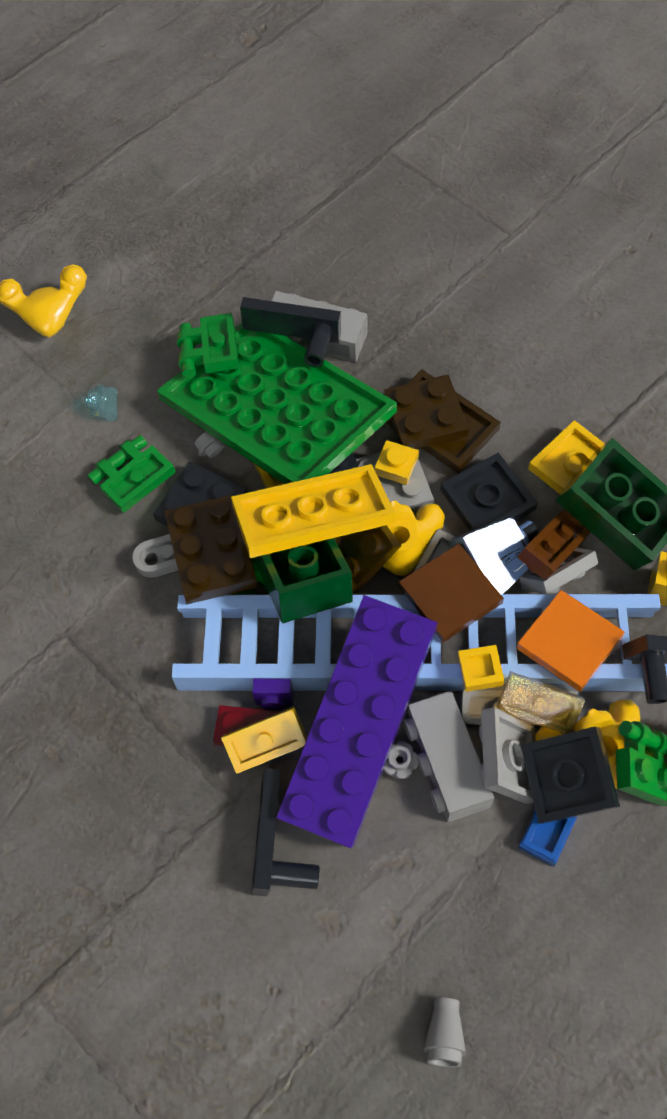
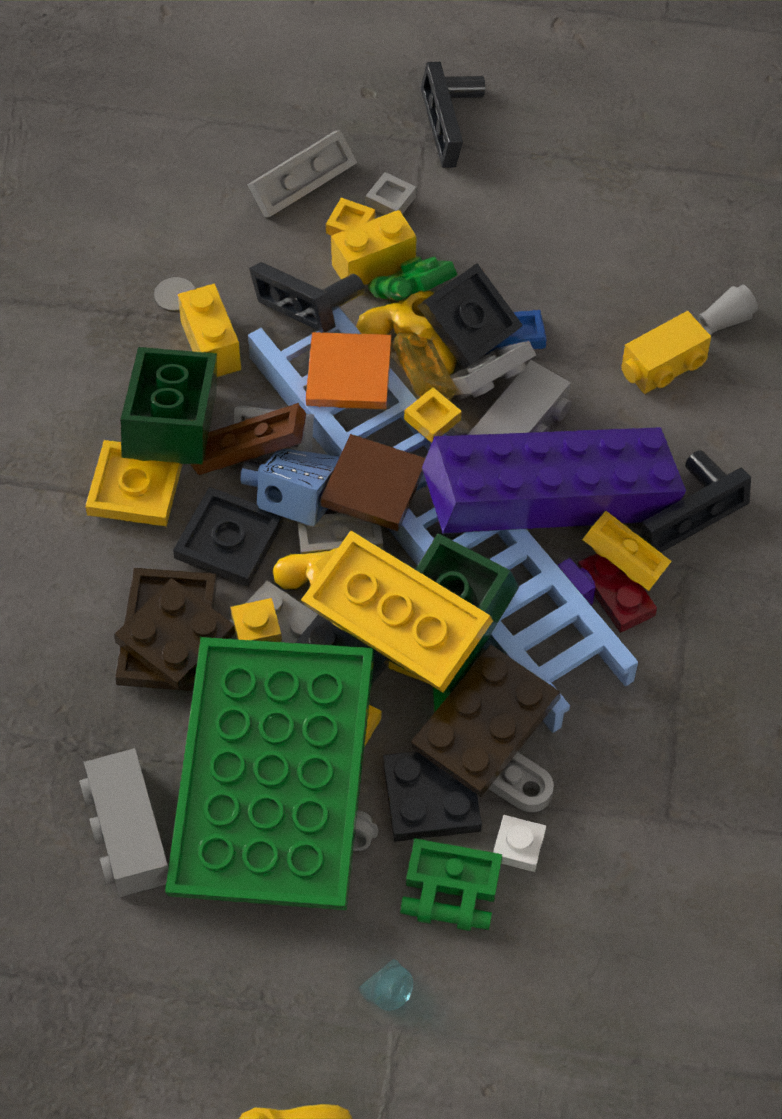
camera: 130 degrees left, 5 degrees down
(125, 531) = (519, 842): none -> white plate
(218, 345) = (240, 875): green plate -> none
(294, 320) = (153, 772): black piece -> none
(436, 933) = (666, 352): none -> yellow brick

